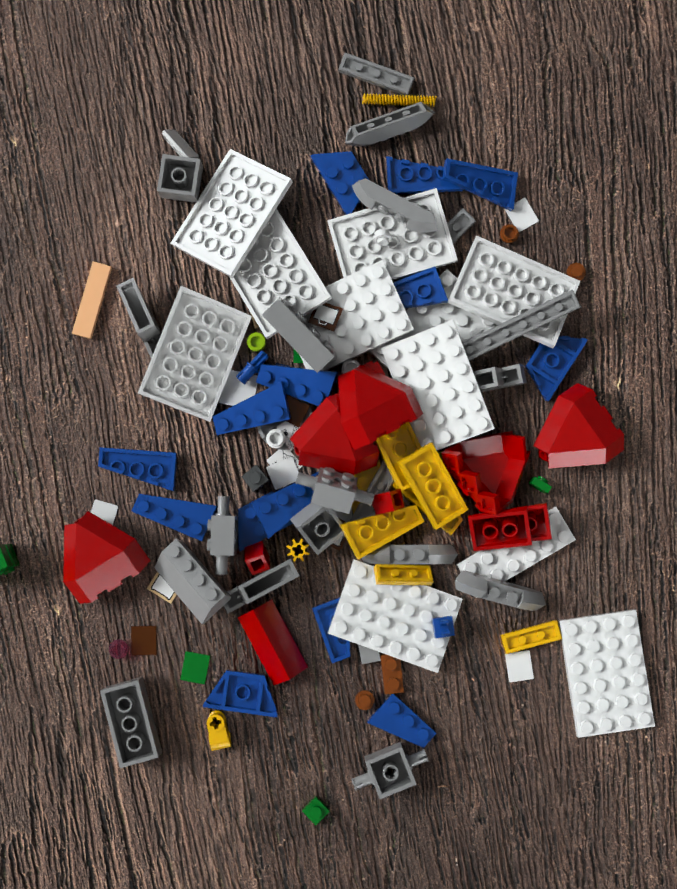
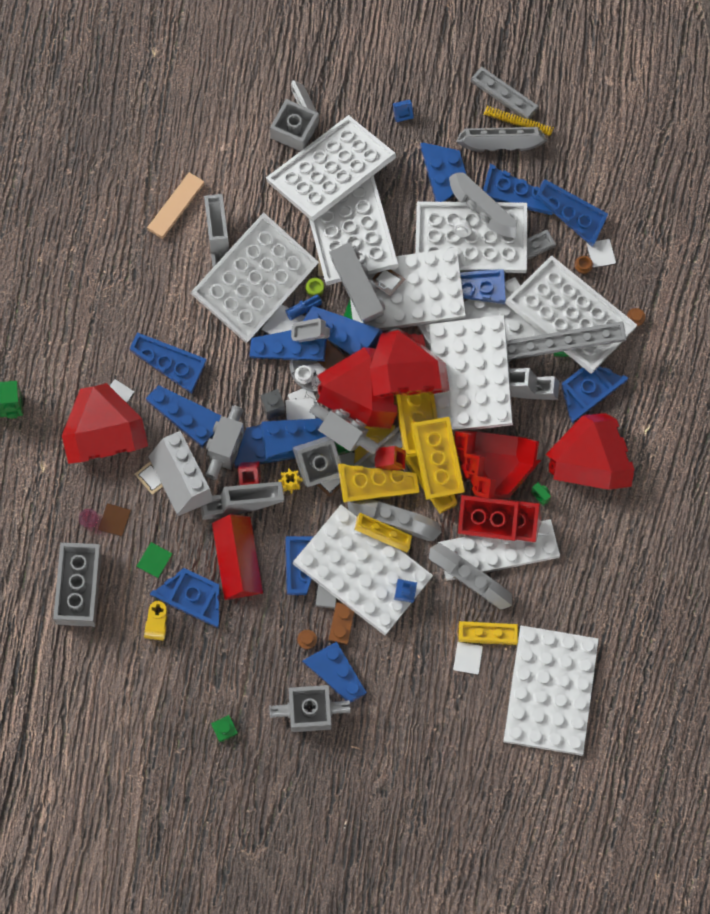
camera: 15 degrees right, 15 degrees down
(268, 397) = (310, 330): none -> light grey piece
(282, 126) = (403, 110): none -> blue tile

